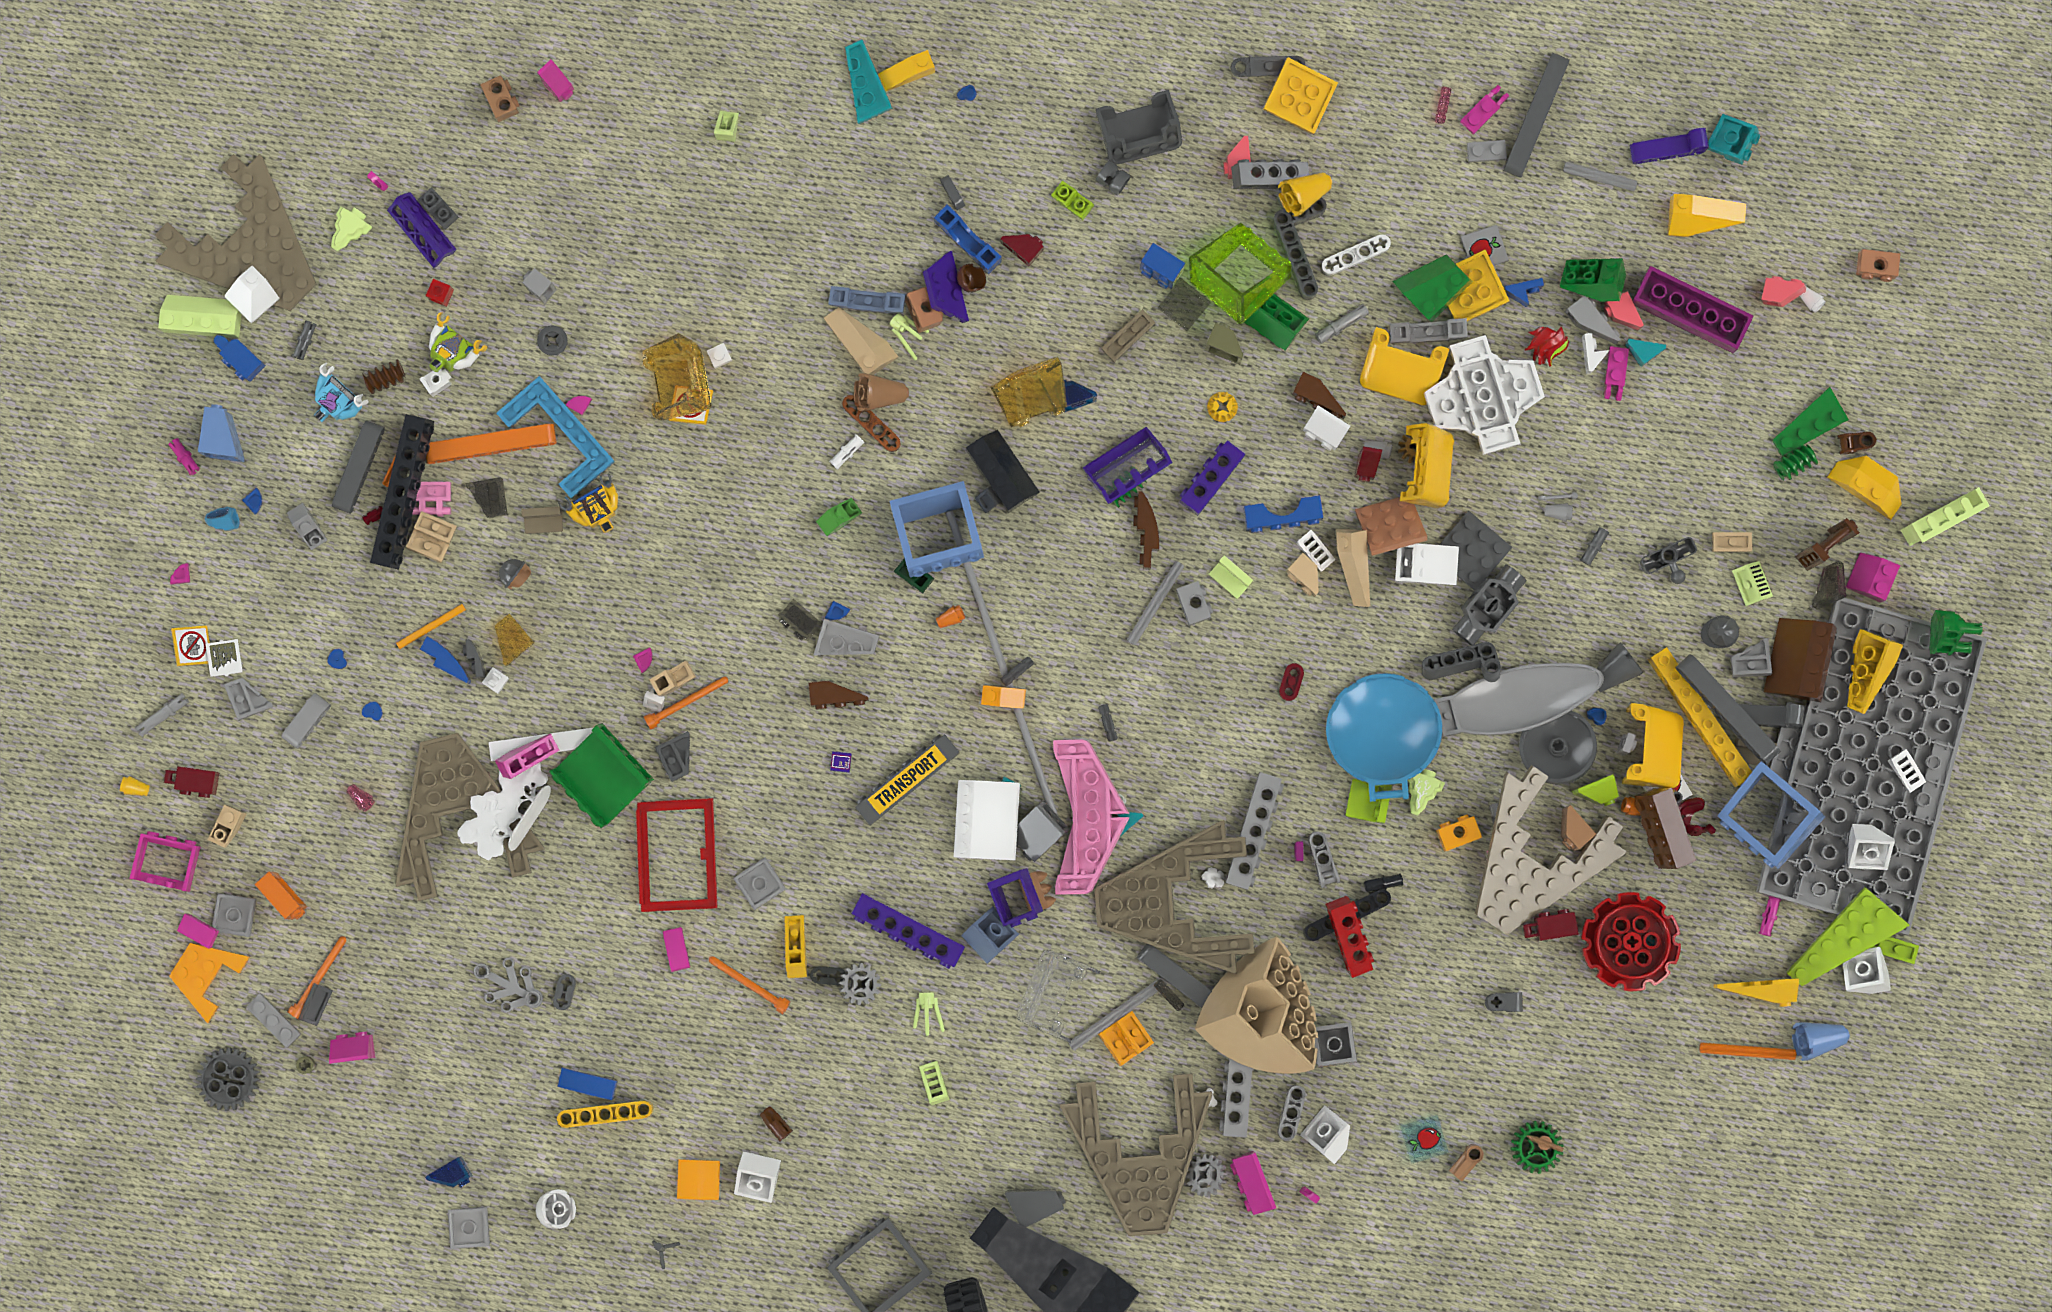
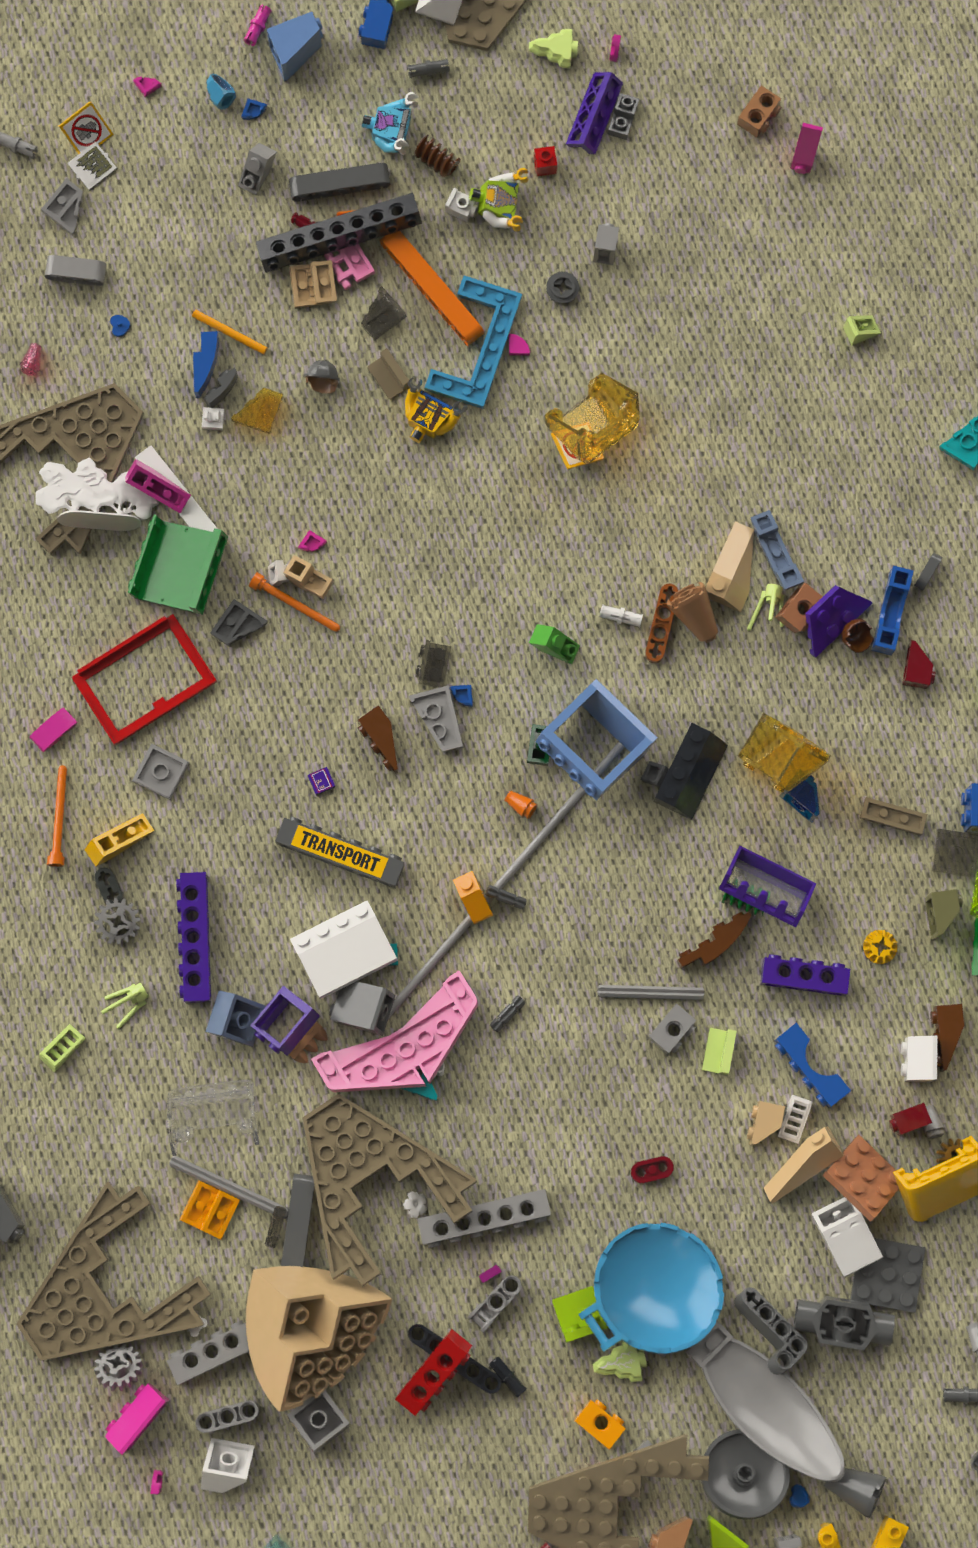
camera: 55 degrees right, 5 degrees down
(336, 659) = (149, 265): blue piece -> none
(719, 355) = (640, 446): white plate -> none

